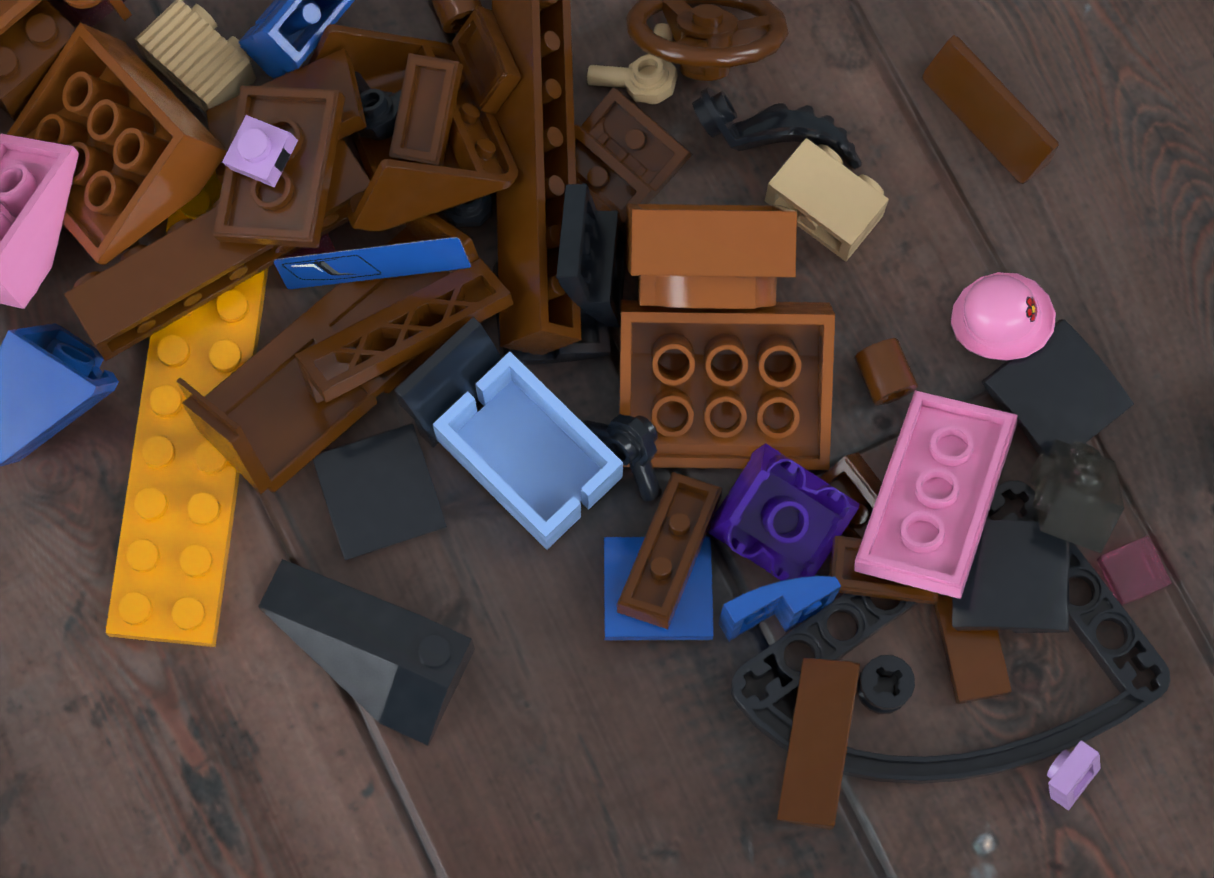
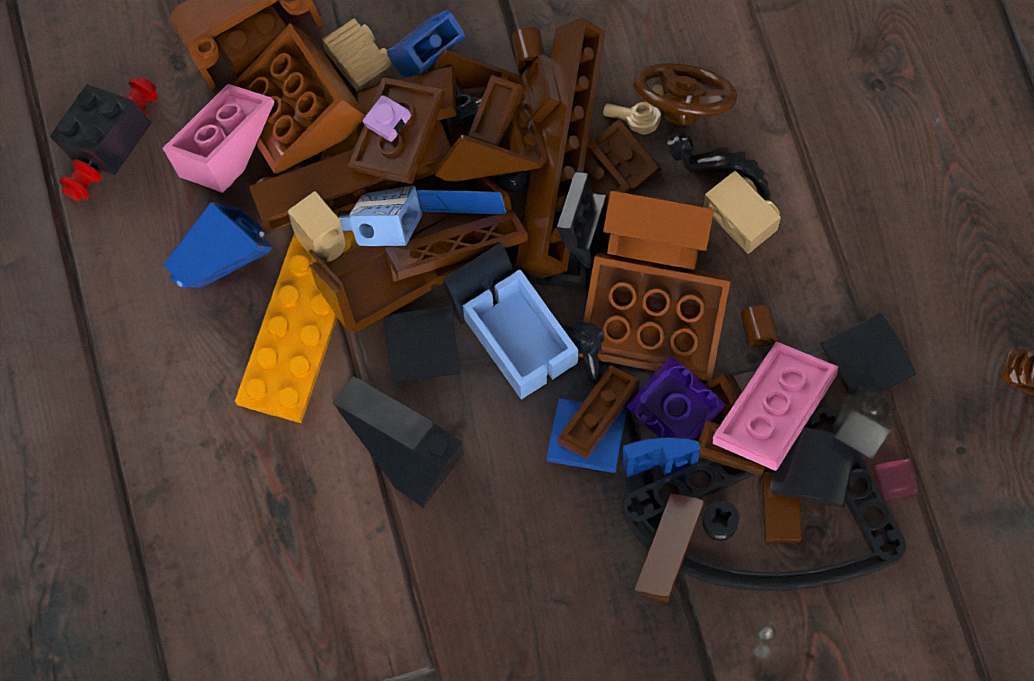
camera: 15 degrees right, 5 degrees down
(184, 341) = (317, 227): none -> tan brick
(282, 305) = (383, 217): none -> light blue torso
(990, 110) = (859, 174): reddish brown slope -> none
(1003, 317) = (842, 304): bright pink hat -> none
(1072, 773) = (830, 597): lavender plate -> none

